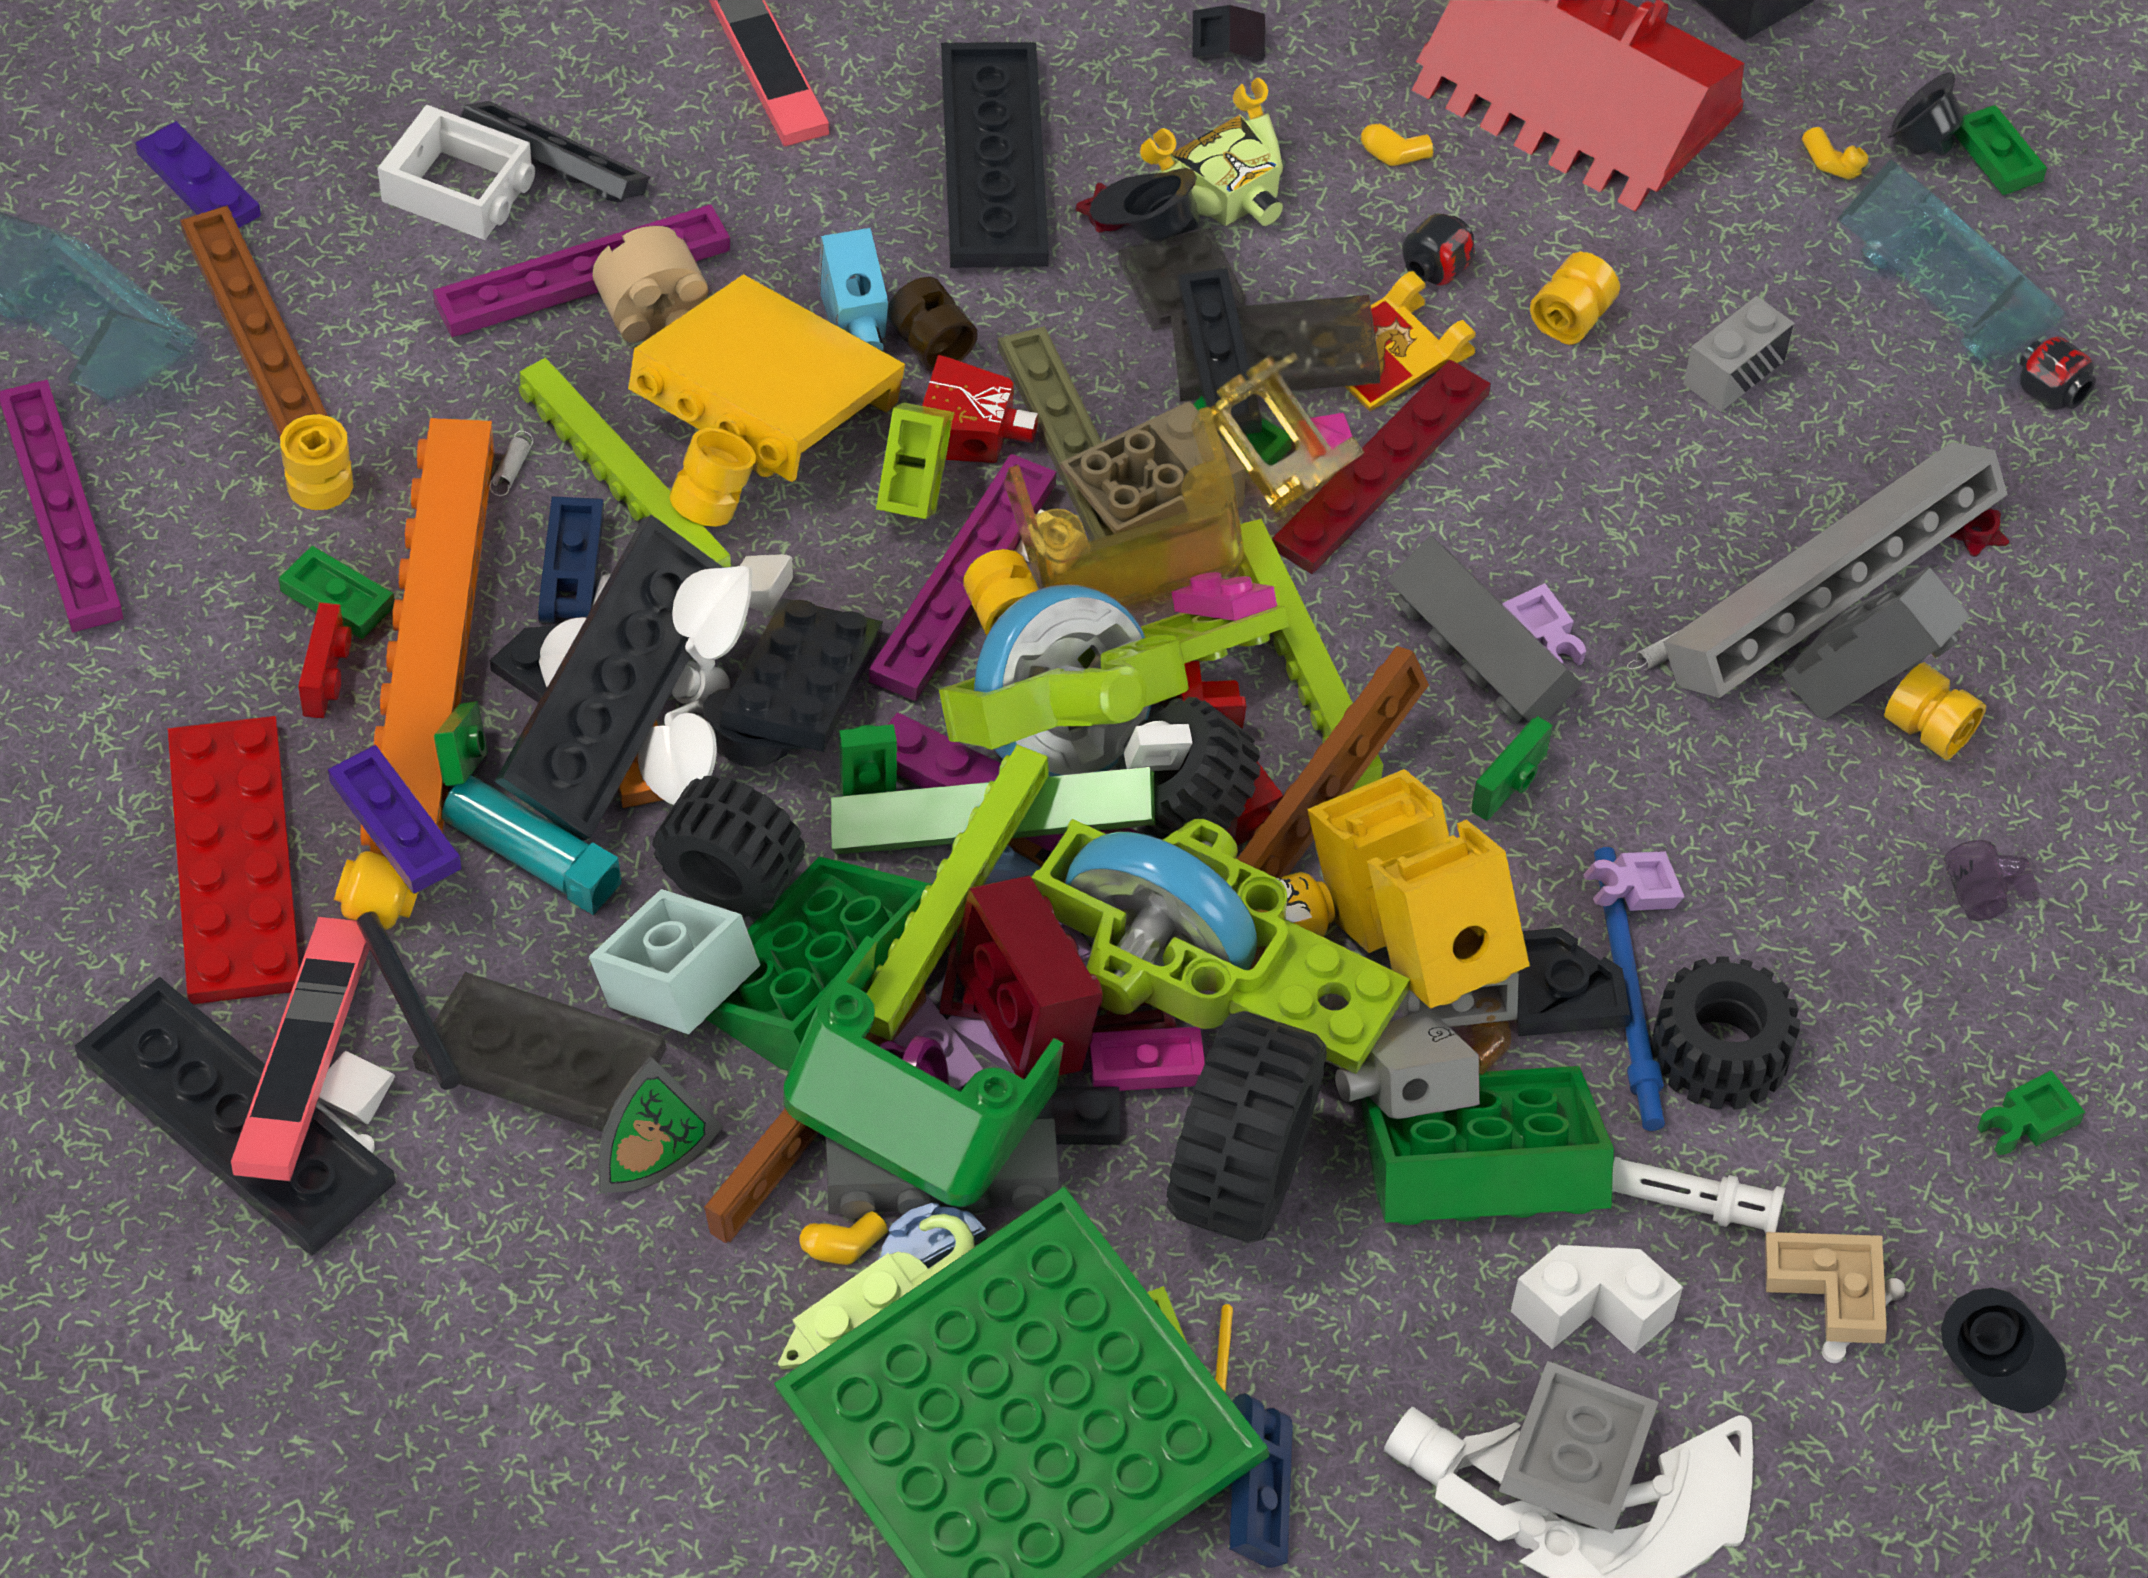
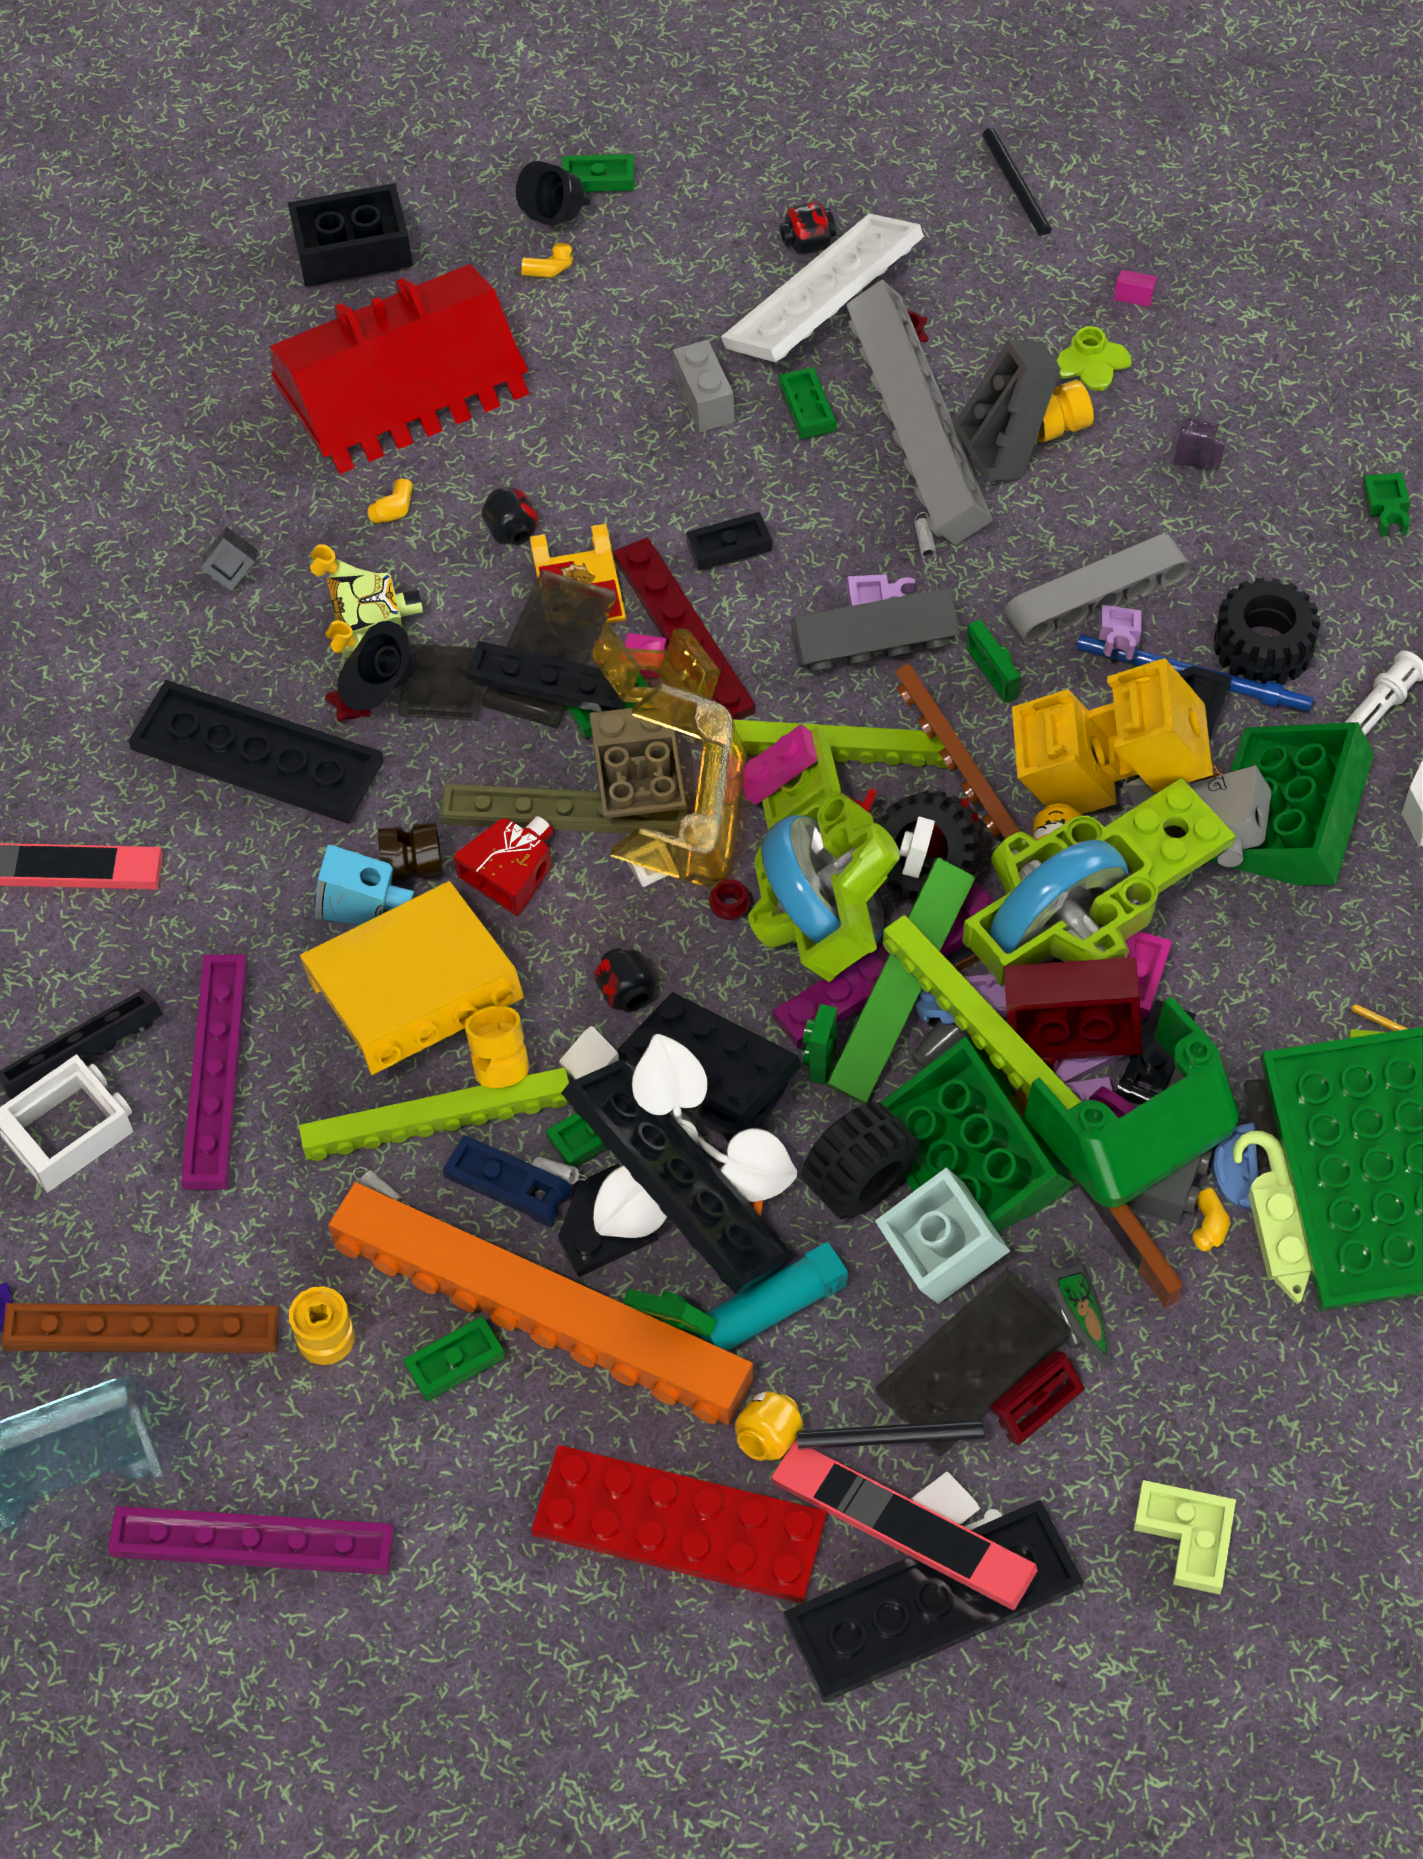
camera: 60 degrees left, 5 degrees up
(320, 676) = (510, 1383): red plate -> none
(394, 819) = (733, 1380): dark purple plate -> none
(430, 1348) = (1200, 1524): none -> yellowish green plate
(567, 1147) = (1032, 1392): none -> dark red tile
(648, 281) = (276, 1021): tan brick -> none
(874, 572) = (625, 980): none -> black head
(914, 460) = (552, 907): lime brick -> none
(943, 604) = (657, 925): magenta plate -> none
(997, 583) = (716, 897): yellow wheel -> none
(1246, 1126) = (1265, 920): black tyre -> none
(1533, 460) = (729, 541): none -> black plate
(1575, 297) = (603, 455): yellow wheel -> none
(1696, 842) = (1108, 582): none -> light grey beam
(1787, 464) = (806, 403): none -> green plate
(1949, 263) = (703, 238): clear light blue windscreen -> none
(1968, 414) = (822, 287): none -> white plate
(2050, 732) = (1095, 362): none -> lime plate

